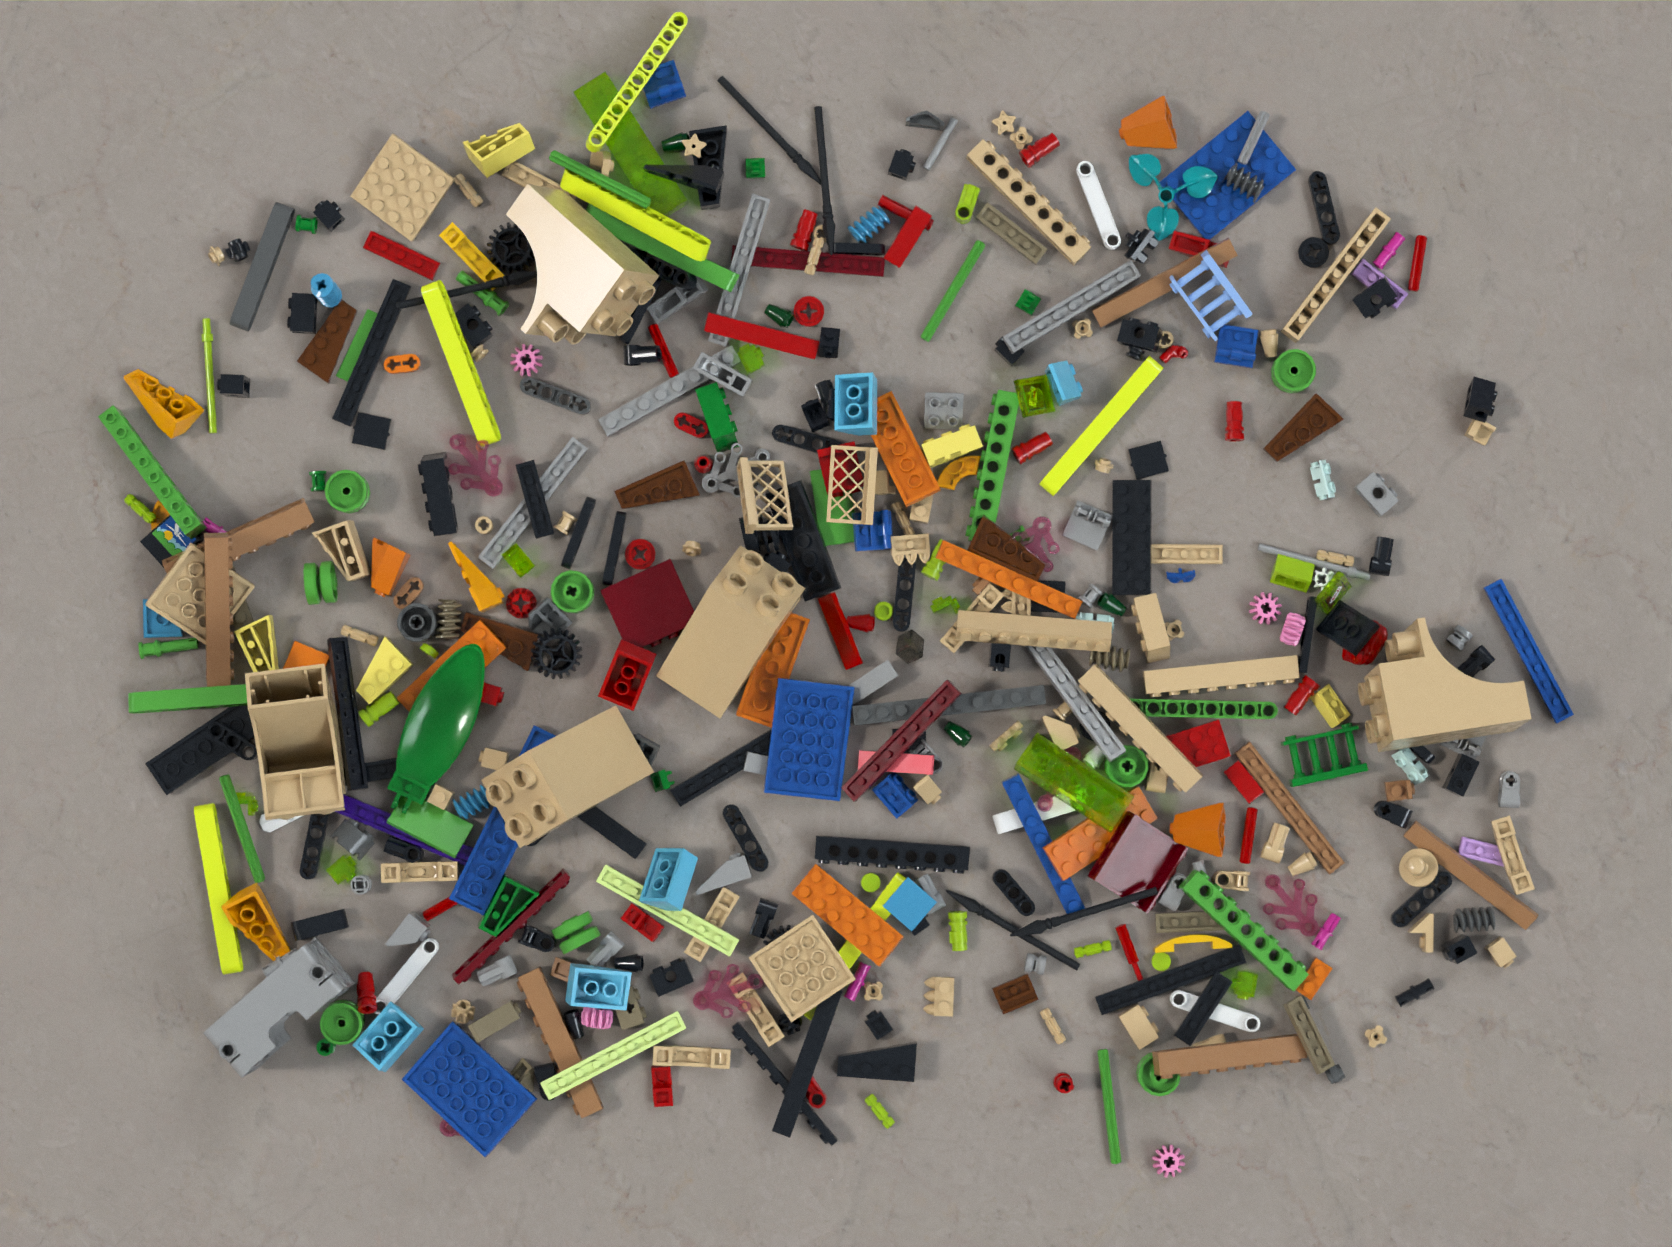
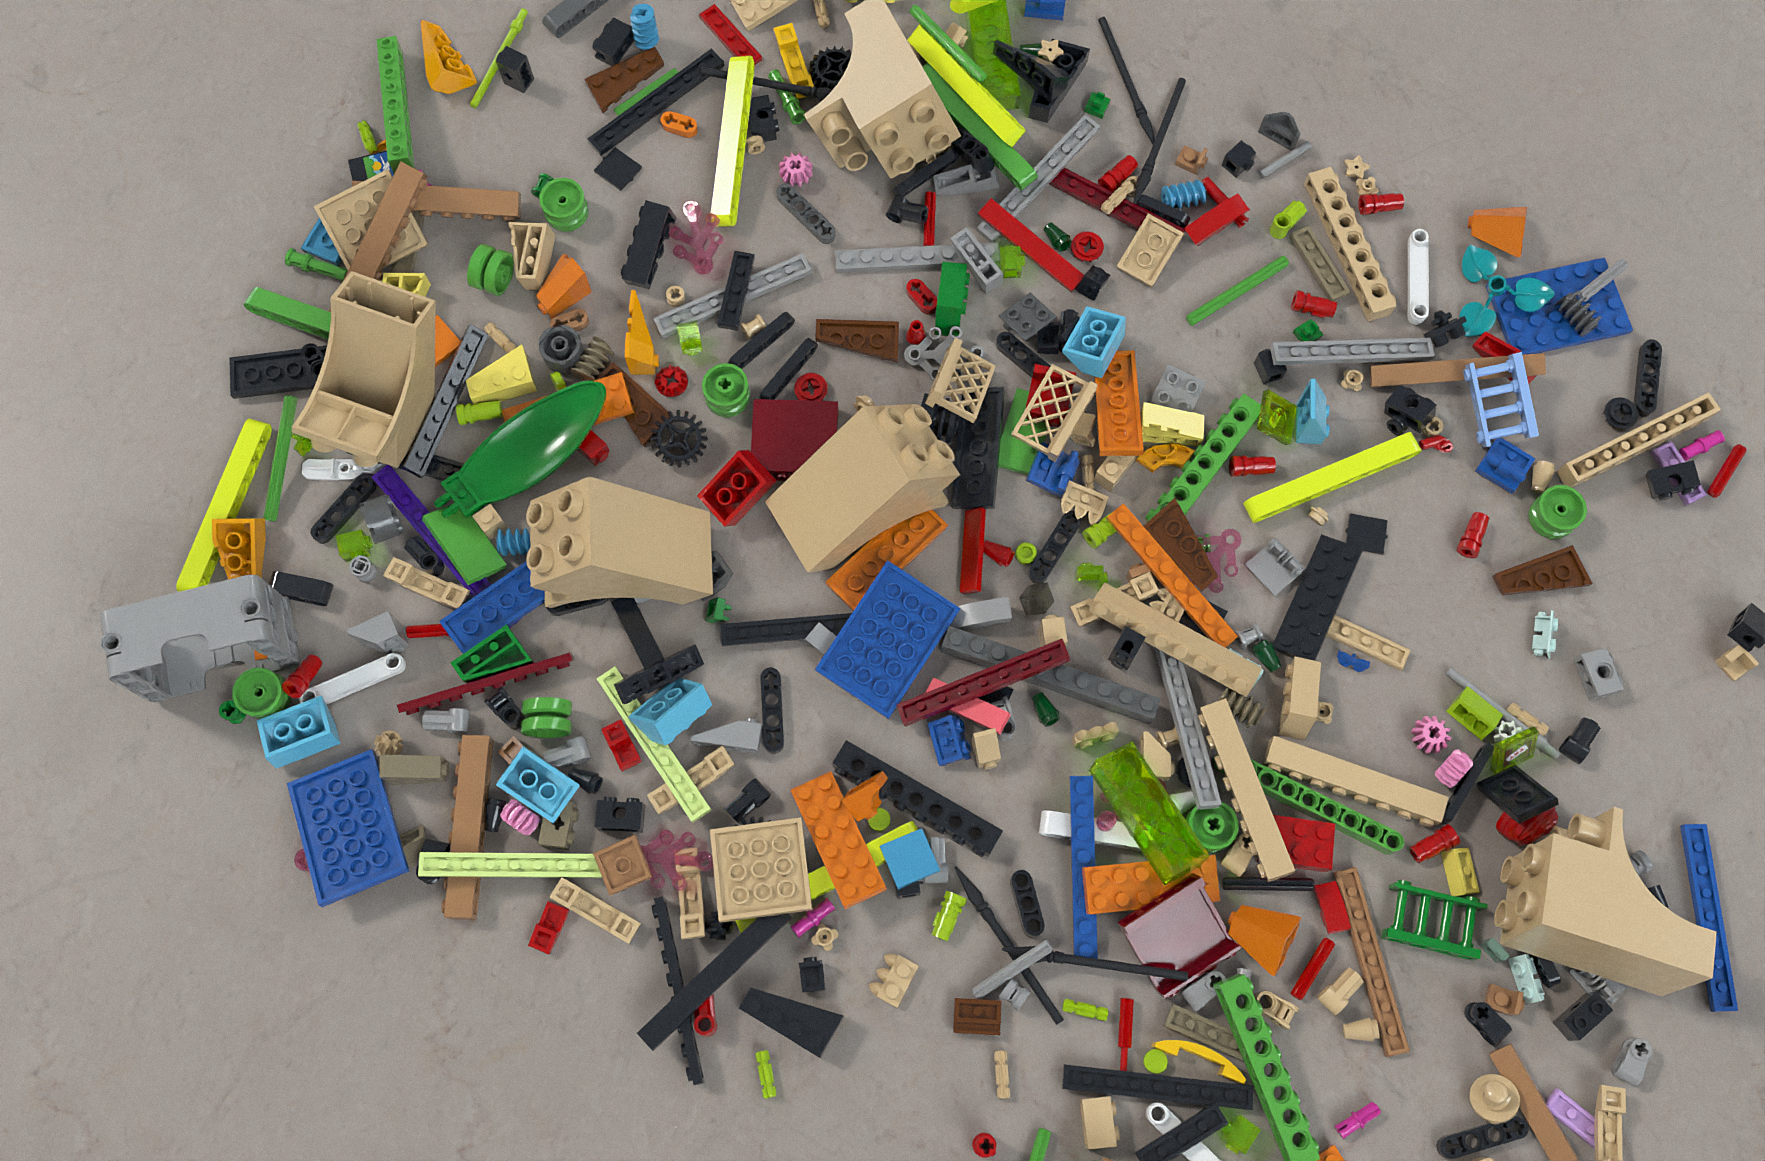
camera: 25 degrees right, 15 degrees down
(547, 616) = (690, 399): dark grey slope -> none
(643, 854) = (658, 674): none -> black slope
(695, 1014) = (623, 865): none -> medium nougat tile
(789, 405) = (1027, 316): none -> dark grey hinge
(852, 874) = (864, 798): none -> orange arch
(860, 183) = (1191, 159): none -> medium nougat bracket
(864, 292) = (1150, 250): none -> tan plate
(936, 673) = (1052, 629): none -> tan brick
(1024, 275) = (1316, 305): none -> red axle
(1025, 947) = (1012, 969): none -> light grey axle
(1175, 793) = (1261, 884): none -> black axle
(1293, 908) = (1330, 1073): clear pink plant -> none
(1377, 756) = (1494, 950): none -> sand green tile

